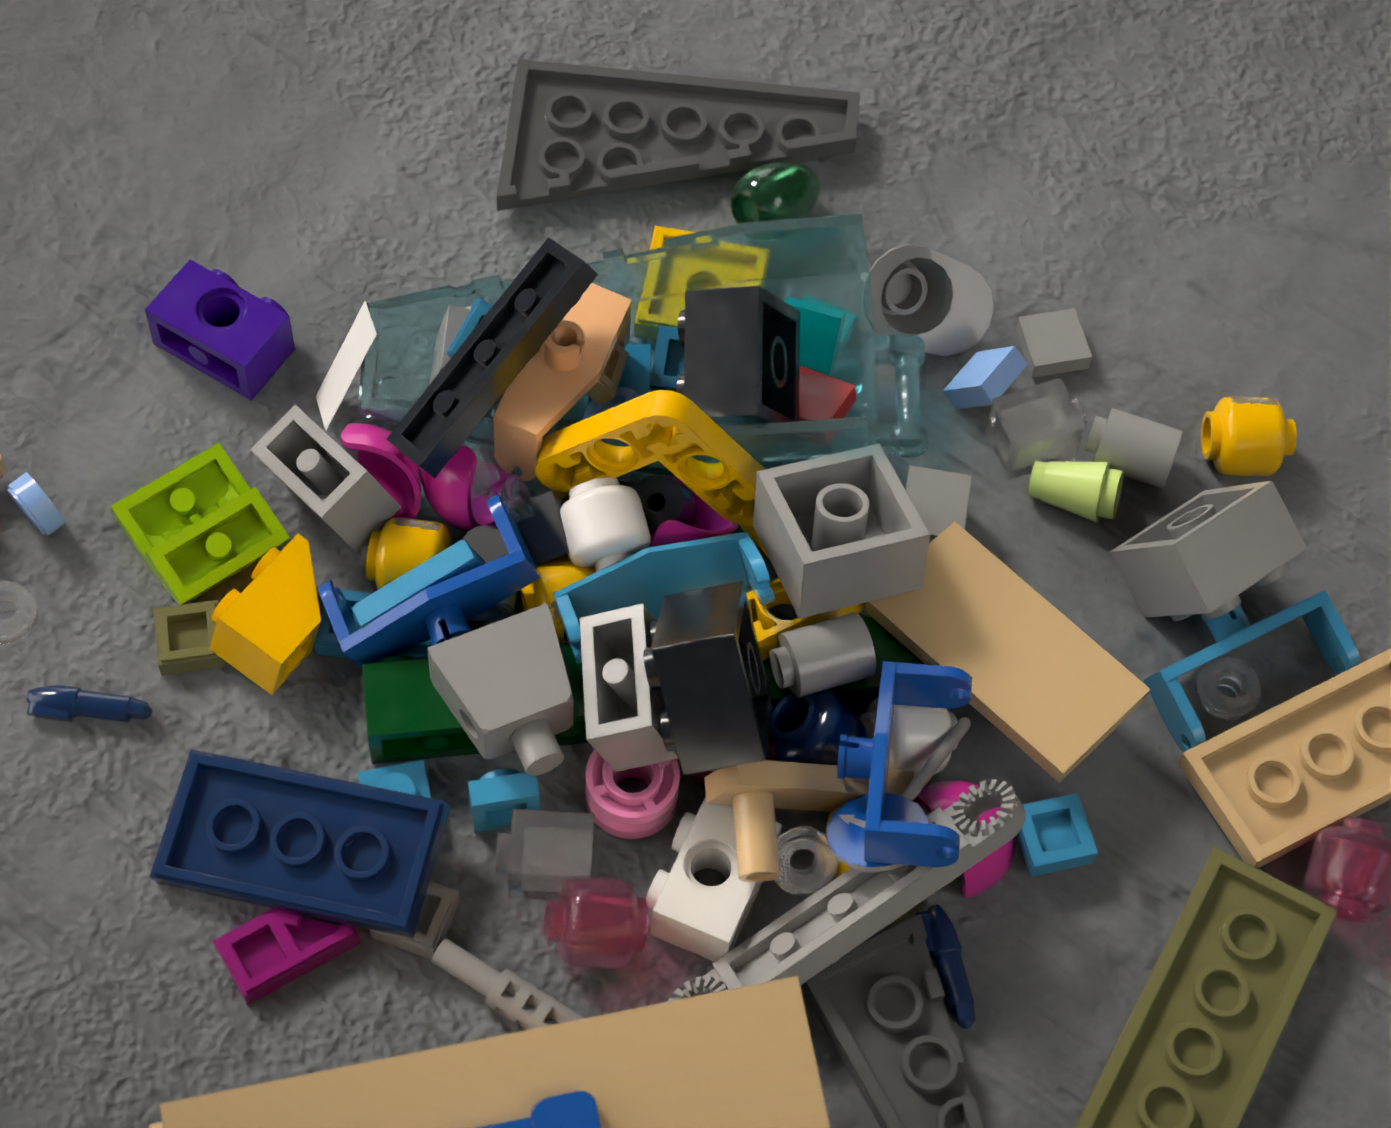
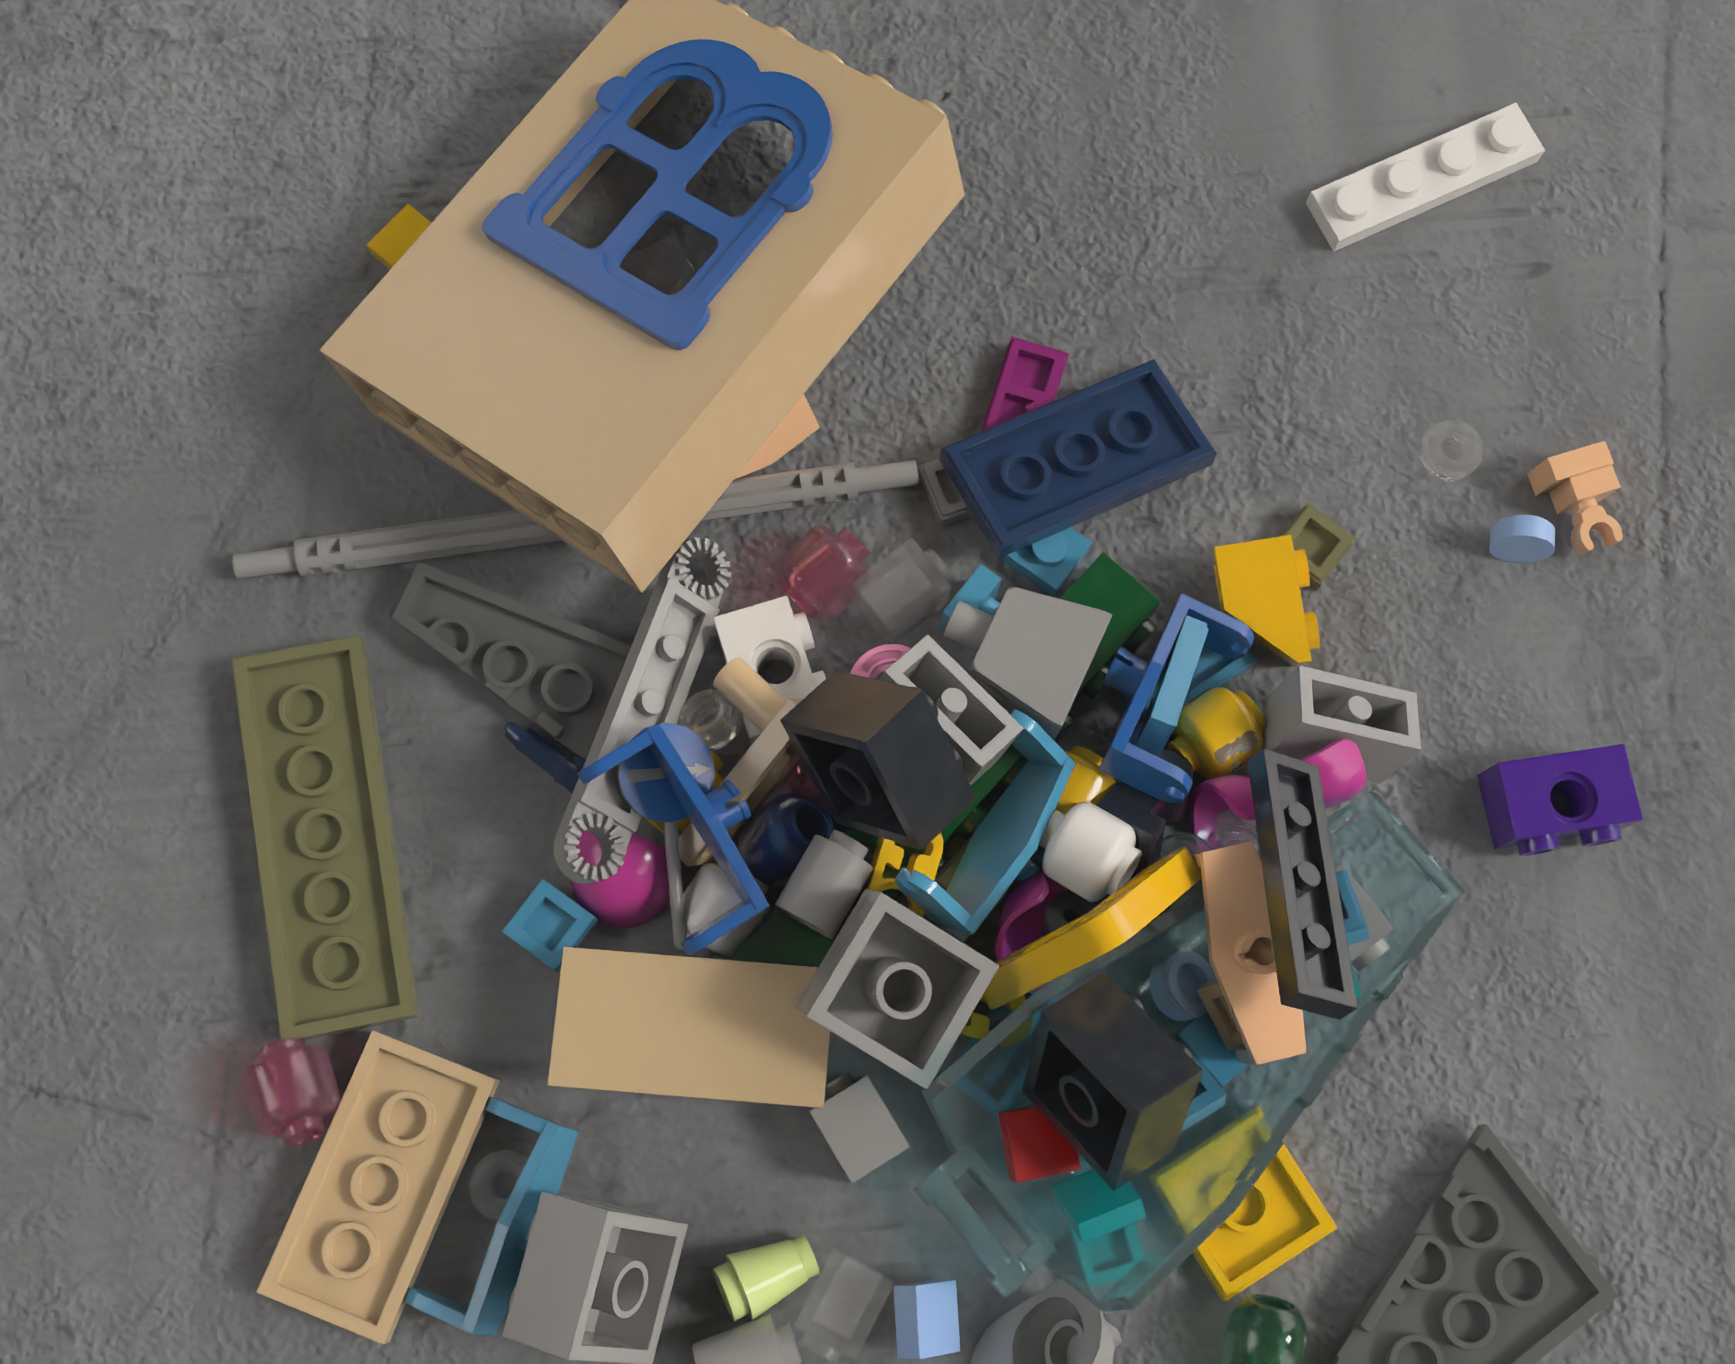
camera: 140 degrees right, 15 degrees up
(68, 702) = (1337, 431): dark blue piece -> none
(199, 524) = (1398, 629): lime slope -> none
(346, 365) = (1428, 835): white sticker -> none

